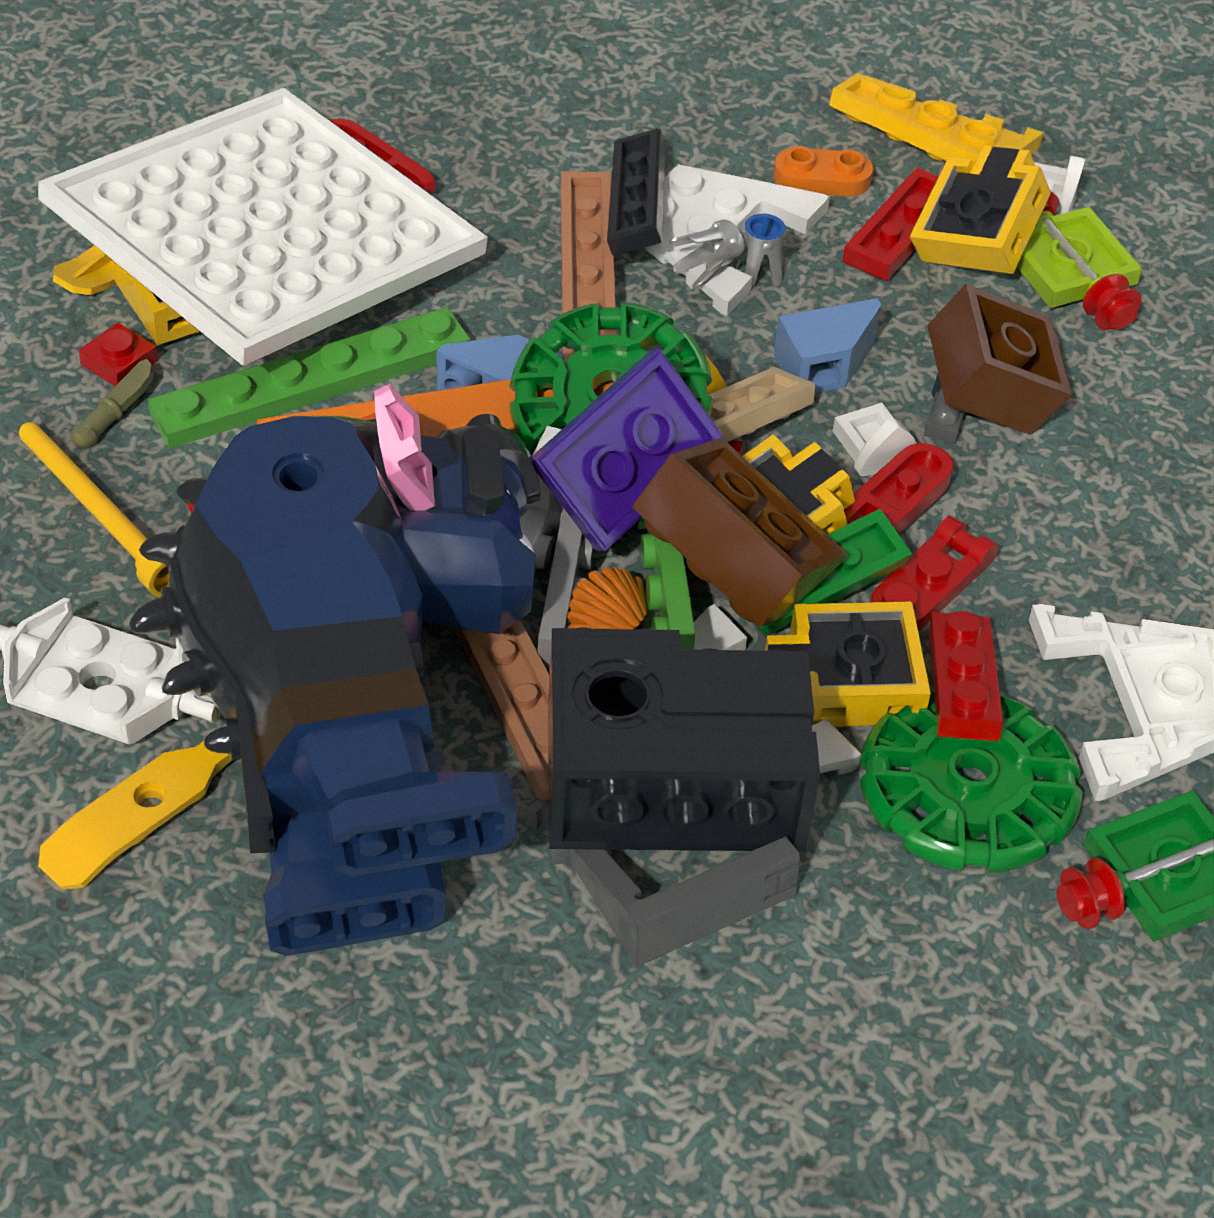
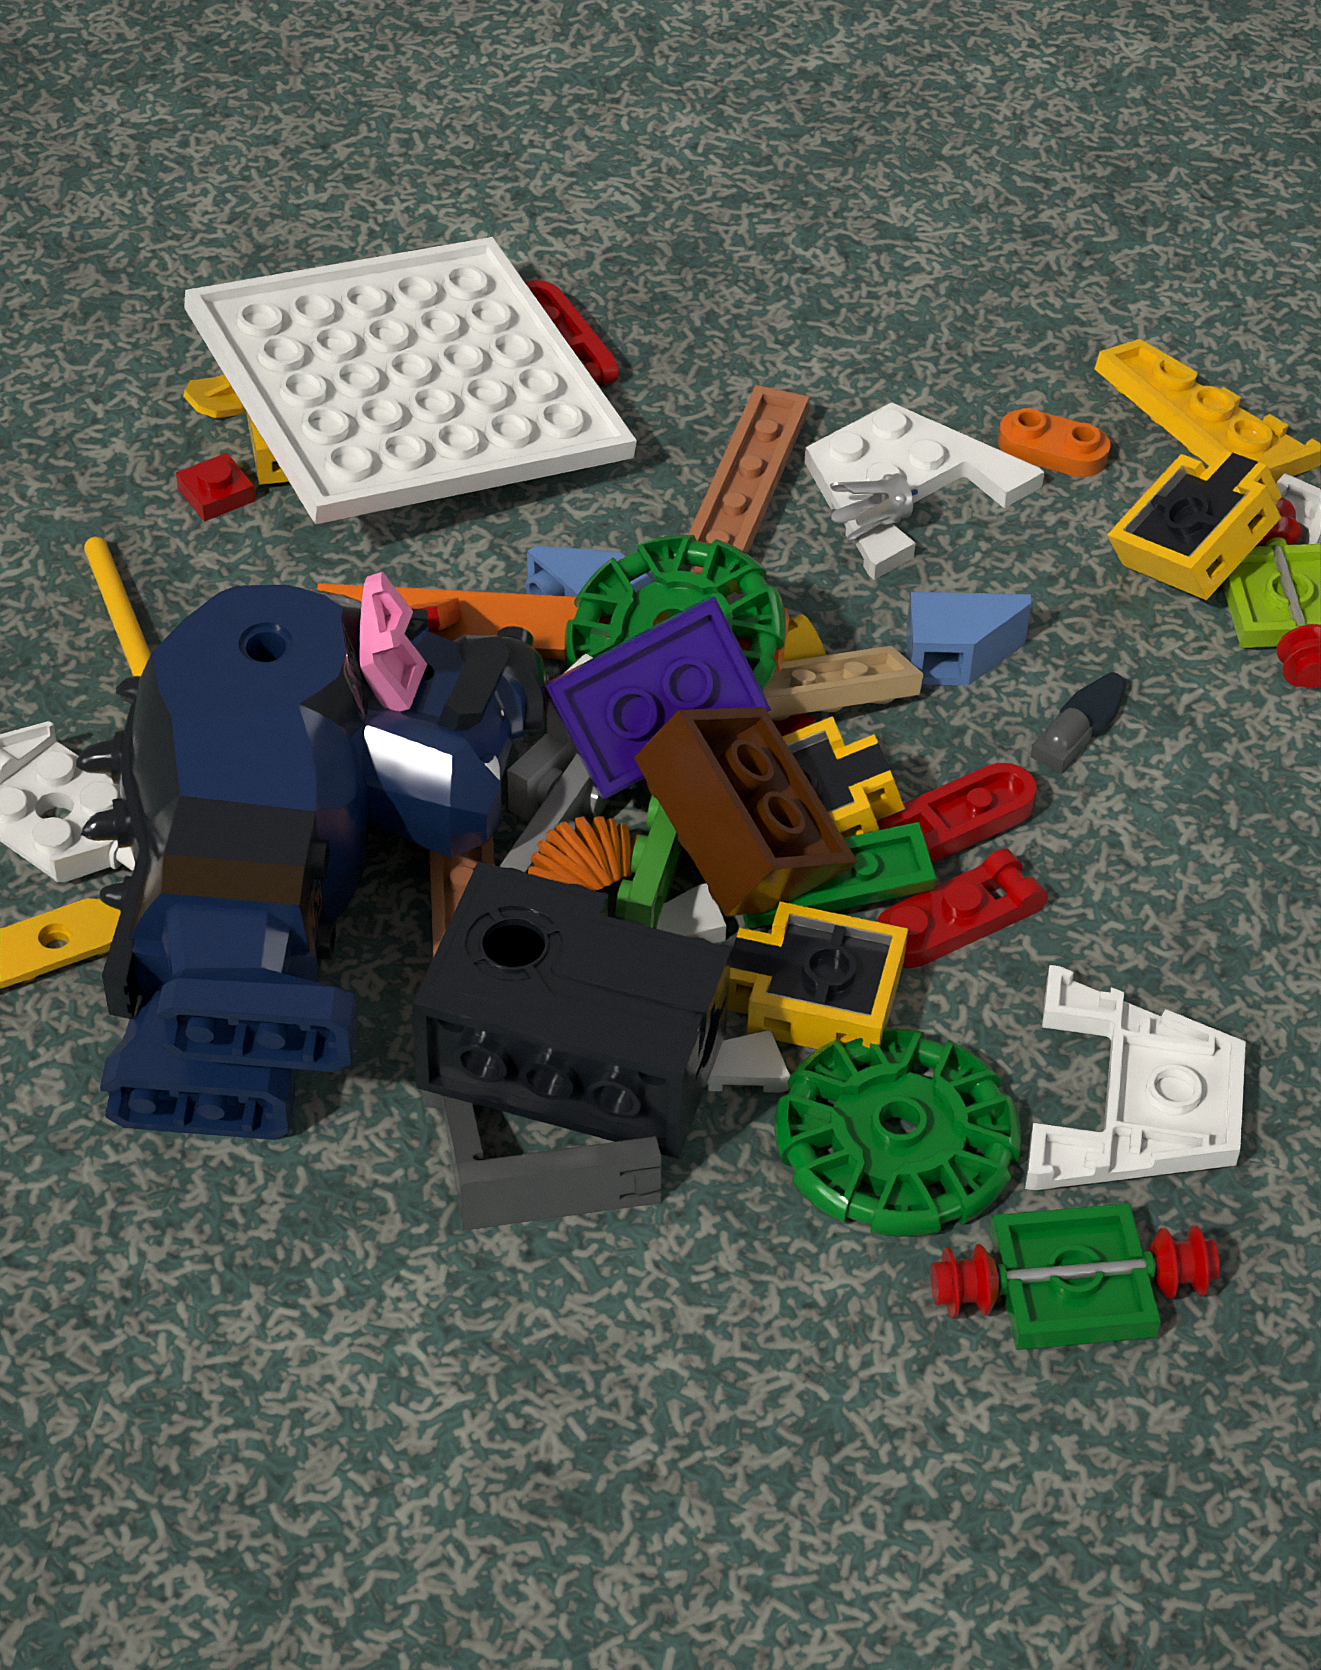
camera: 20 degrees right, 0 degrees up
(112, 405) = (184, 539): olive piece -> none
(303, 378) = (396, 549): bright green plate -> none
(637, 192) = (825, 424): black tile -> none
(763, 237) = (937, 501): flat silver piece -> none
(871, 437) = (966, 743): white tile -> none
(885, 238) = (1079, 533): red plate -> none
(964, 676) = (936, 1022): red plate -> none
(998, 360) = (1133, 691): reddish brown brick -> none

